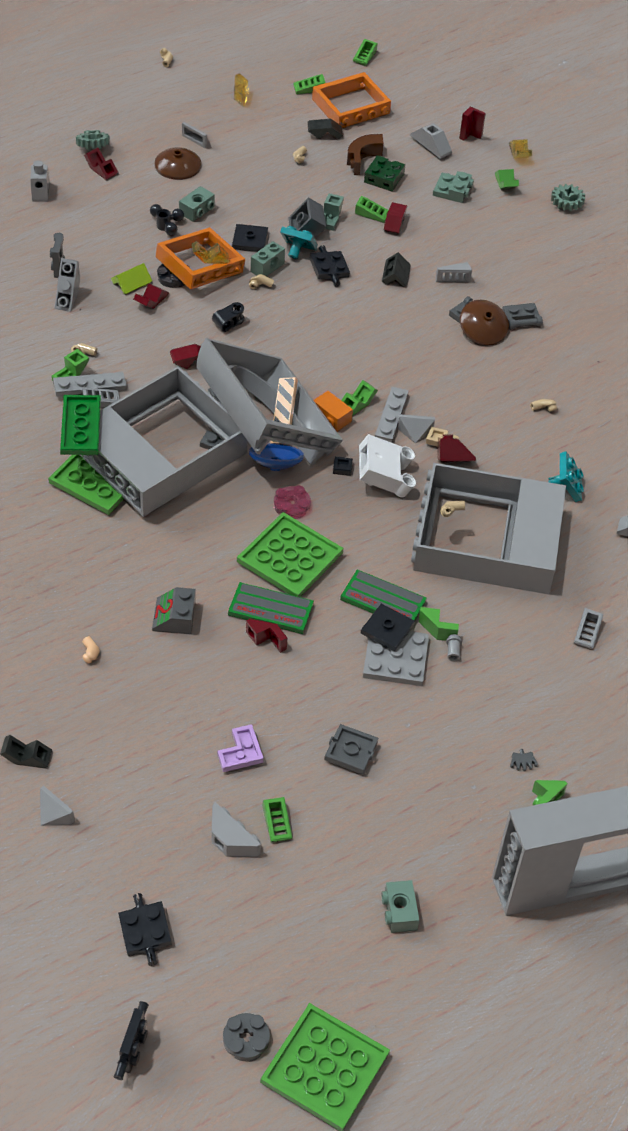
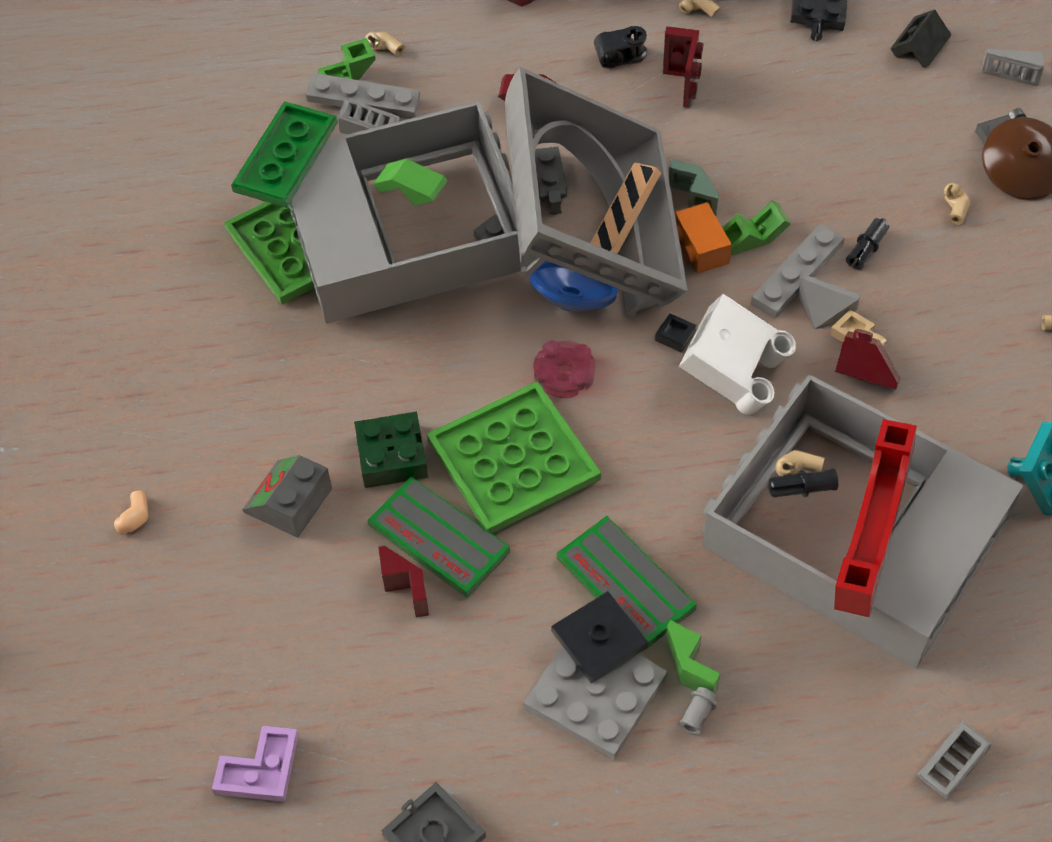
camera: 30 degrees right, 5 degrees up
(171, 419) = (414, 180): none -> bright green slope
(214, 577) = (391, 459): none -> dark green piece
(272, 313) = (681, 56): none -> dark red bracket
(313, 381) = (695, 181): none -> sand green slope
(422, 390) = (867, 243): none -> black axle
(459, 355) = (958, 202): none -> tan arm
(459, 516) = (803, 483): none -> black axle
(508, 537) = (871, 538): none -> red arch

